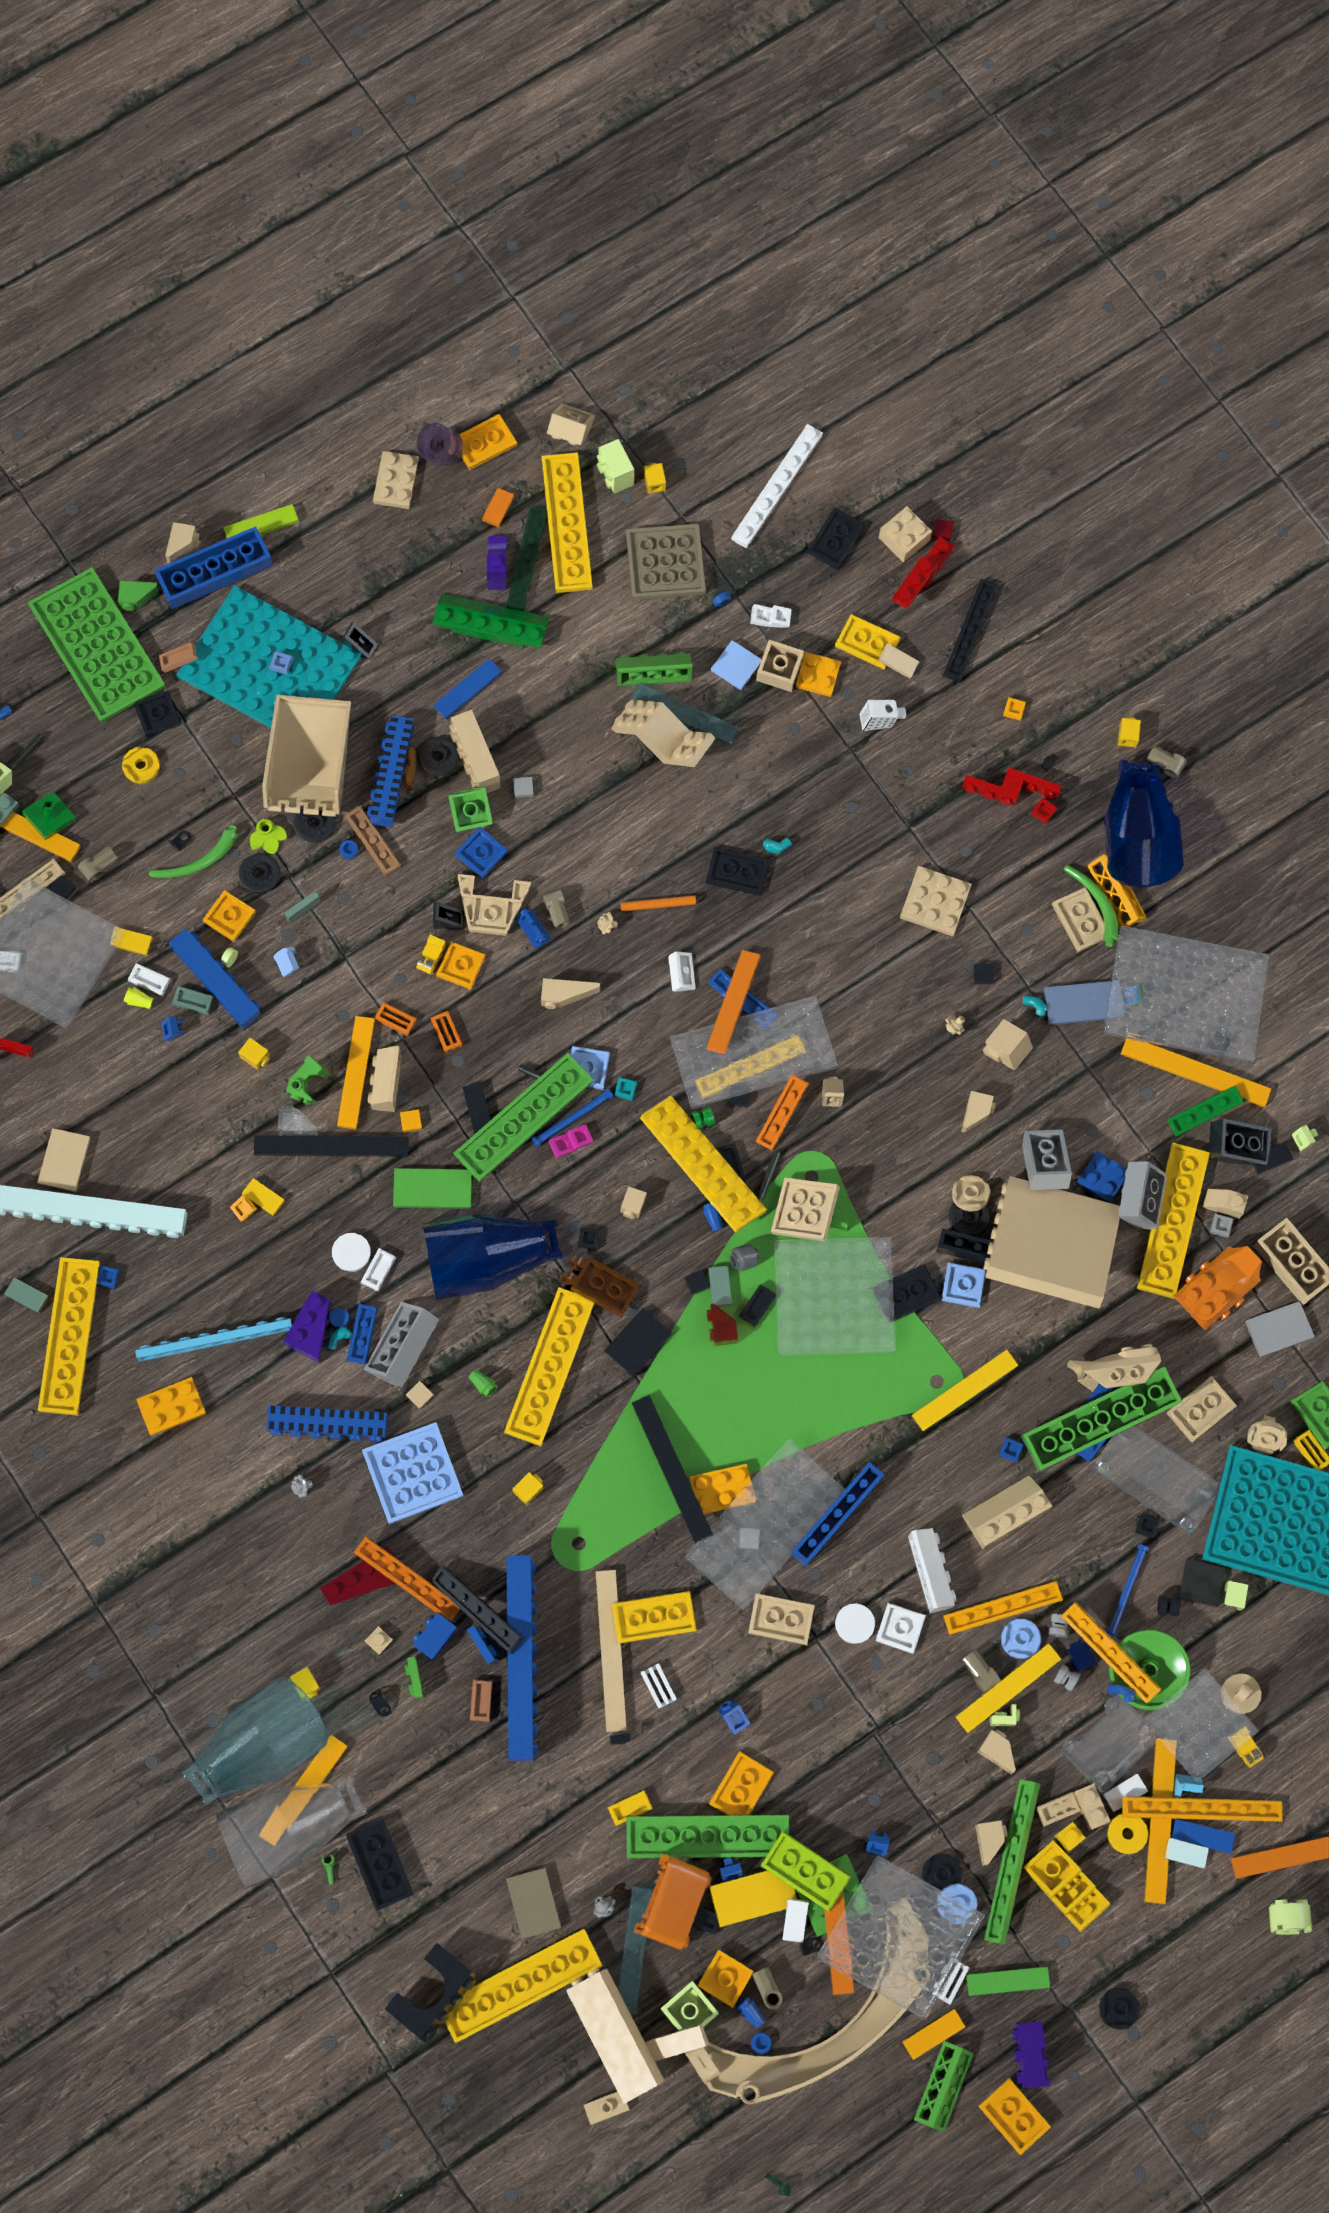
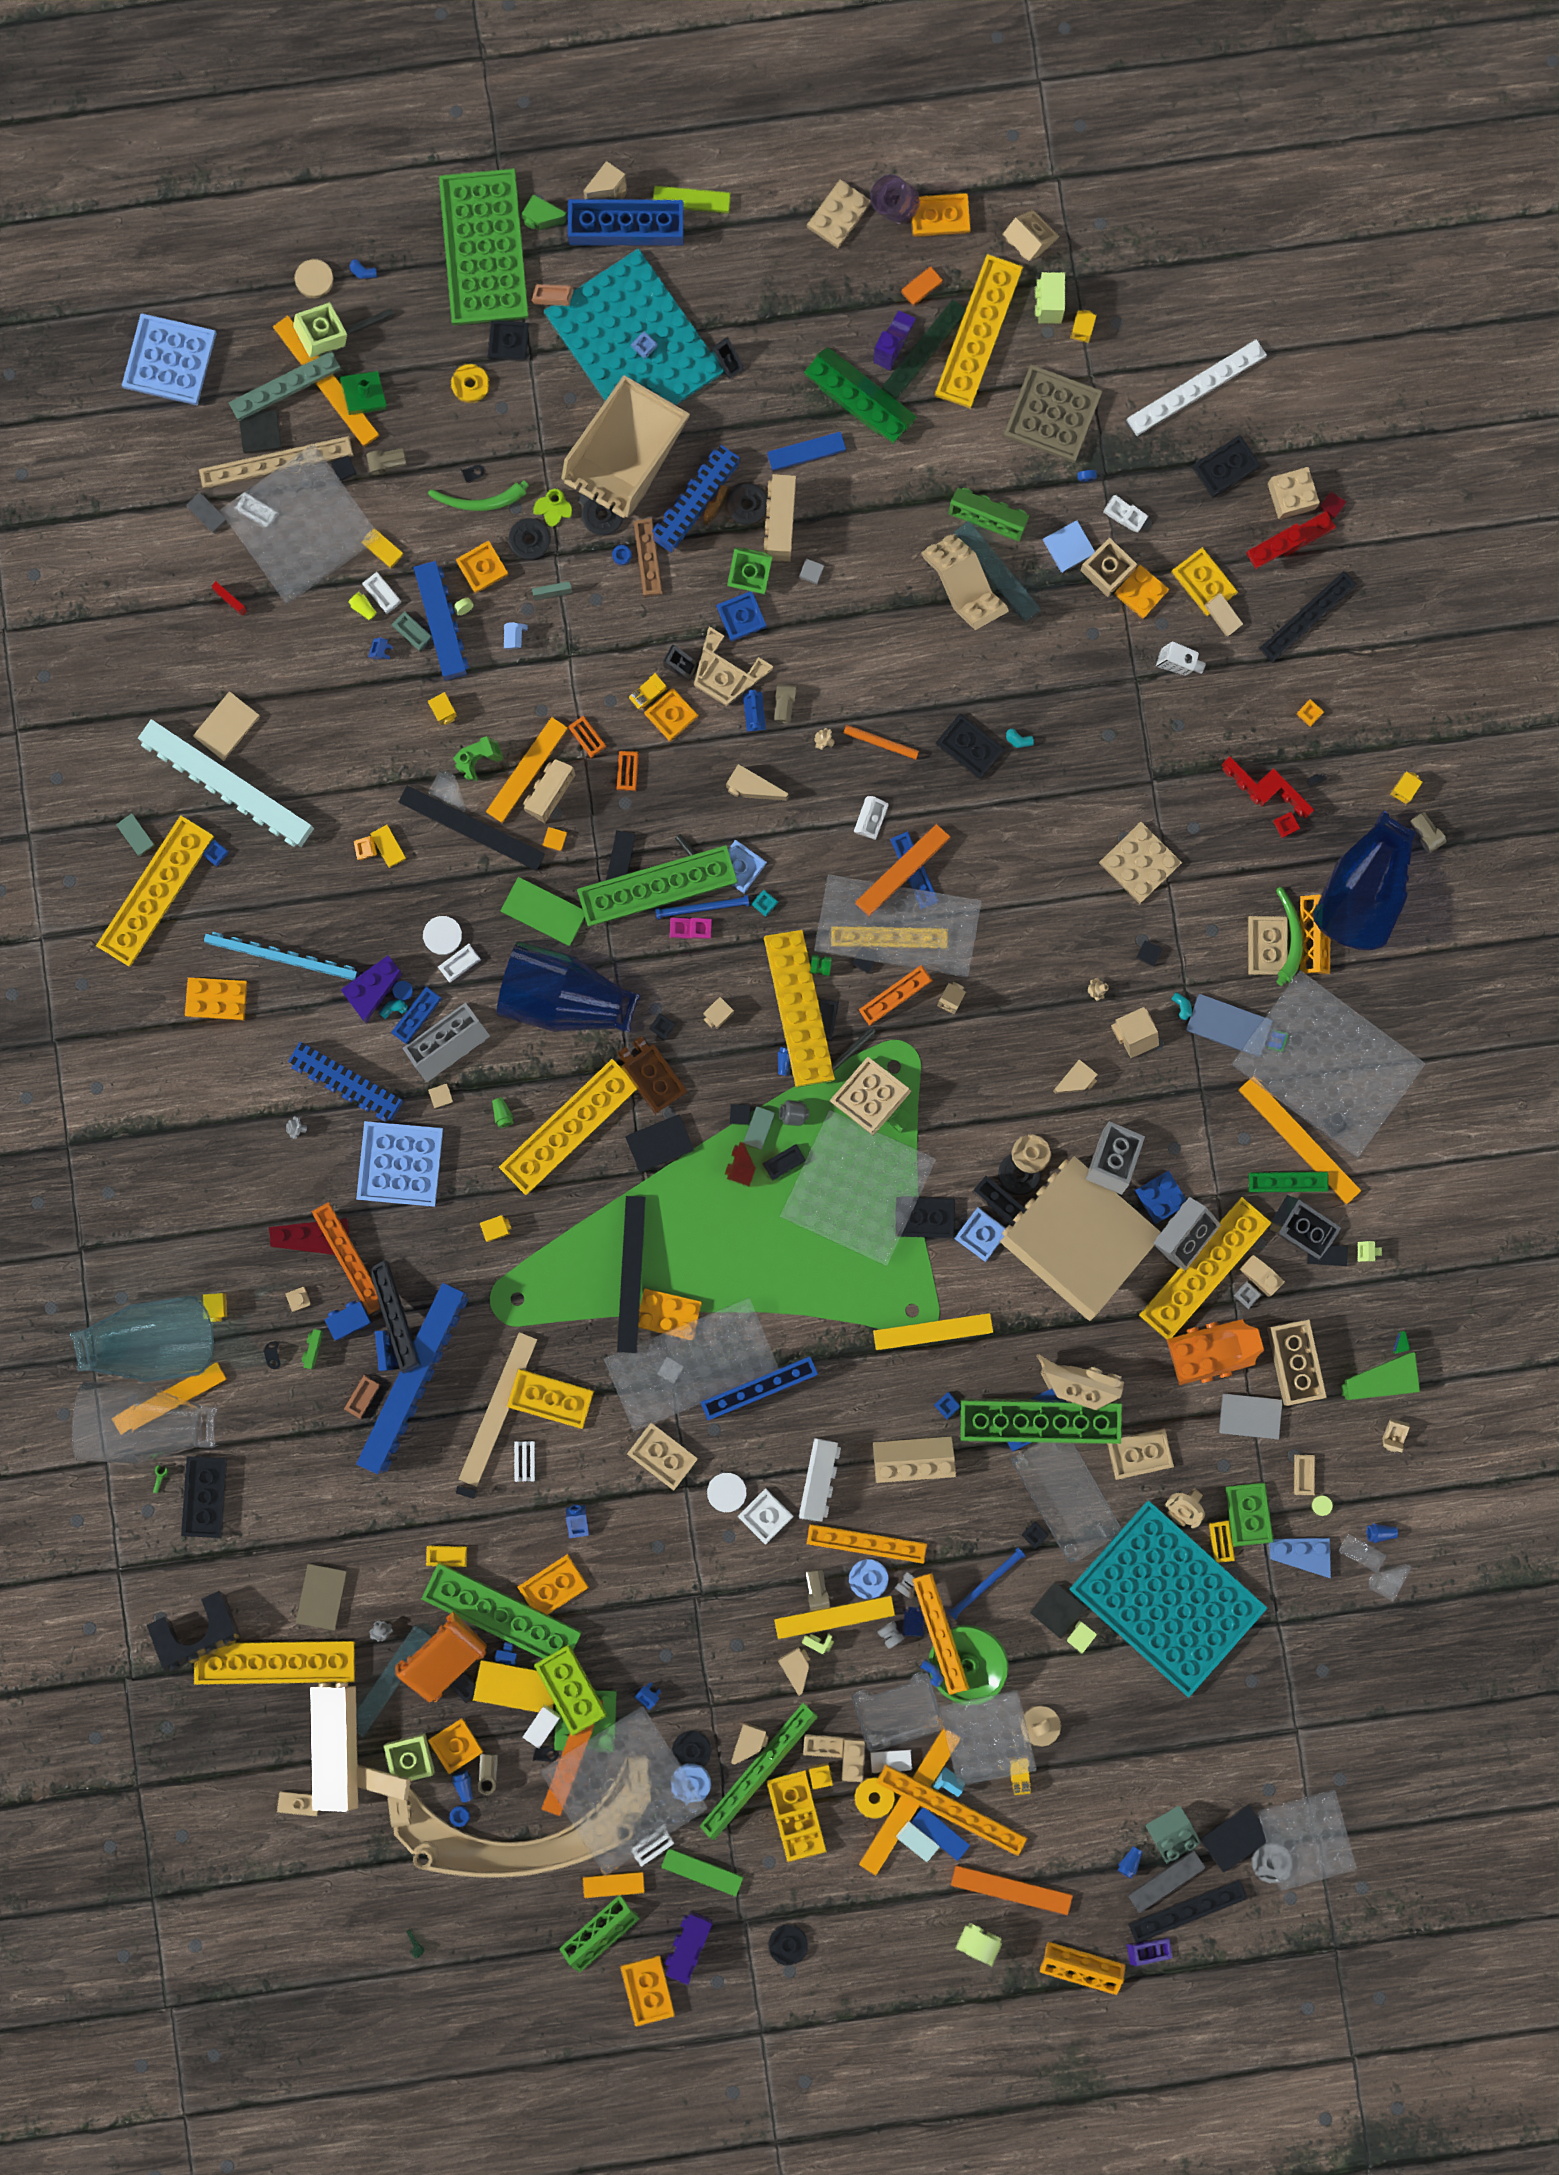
camera: 30 degrees right, 10 degrees up
(1168, 1605) = (1020, 1618): black wheel -> none

